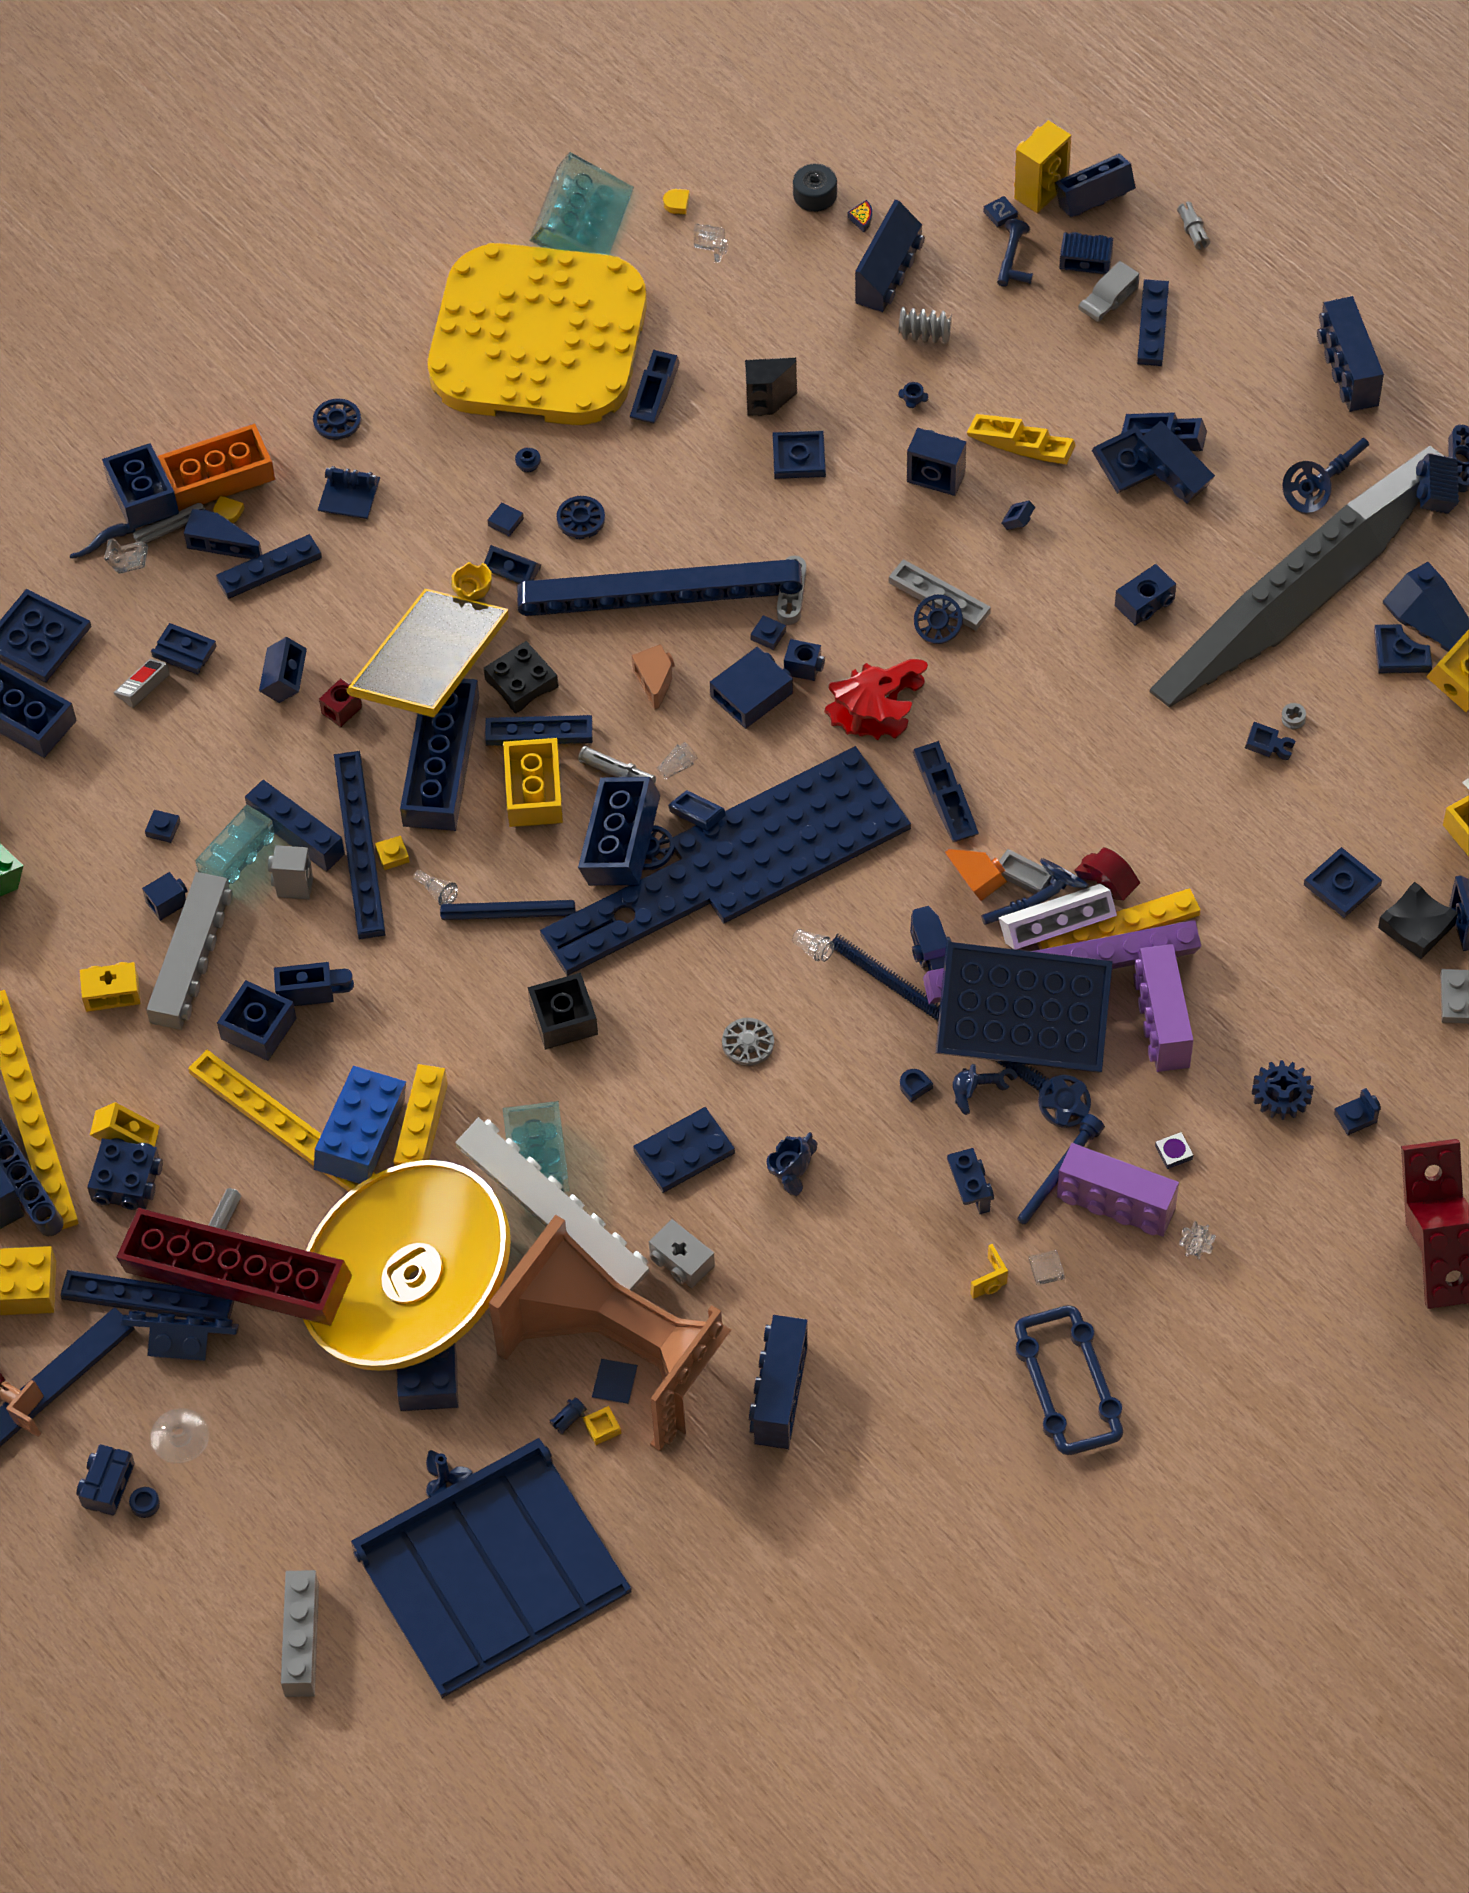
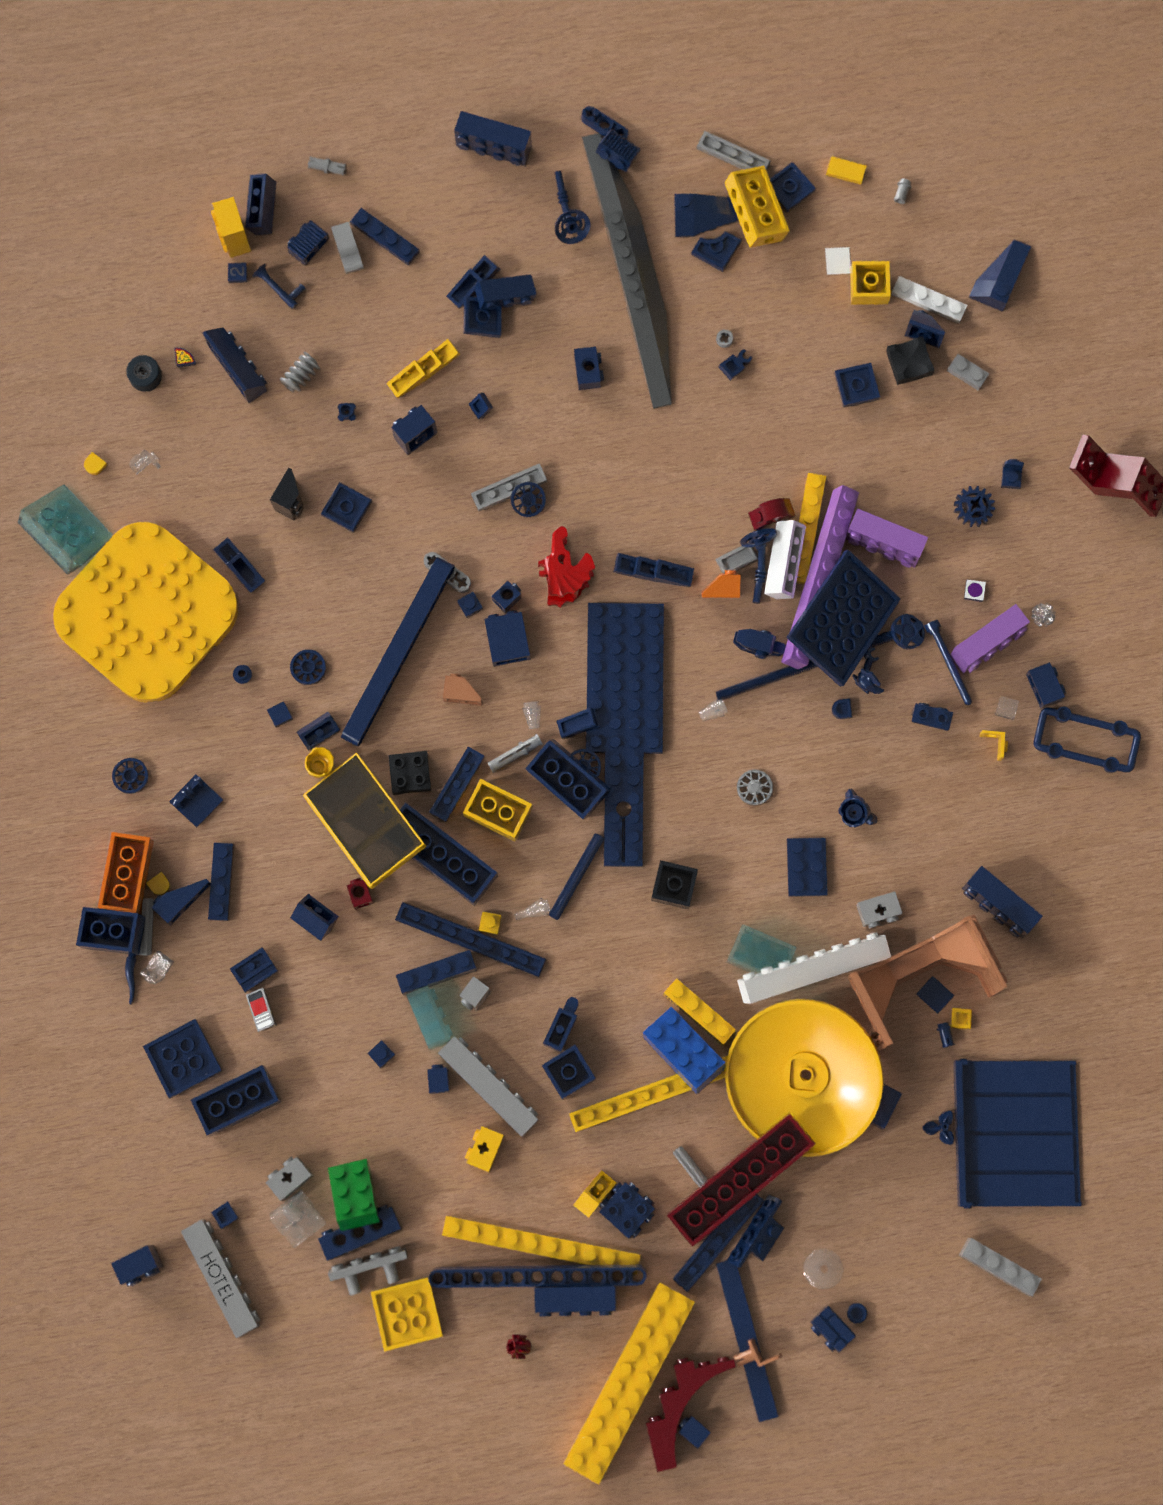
camera: 60 degrees left, 20 degrees up
(1106, 1292) = (1046, 685): none -> dark blue brick

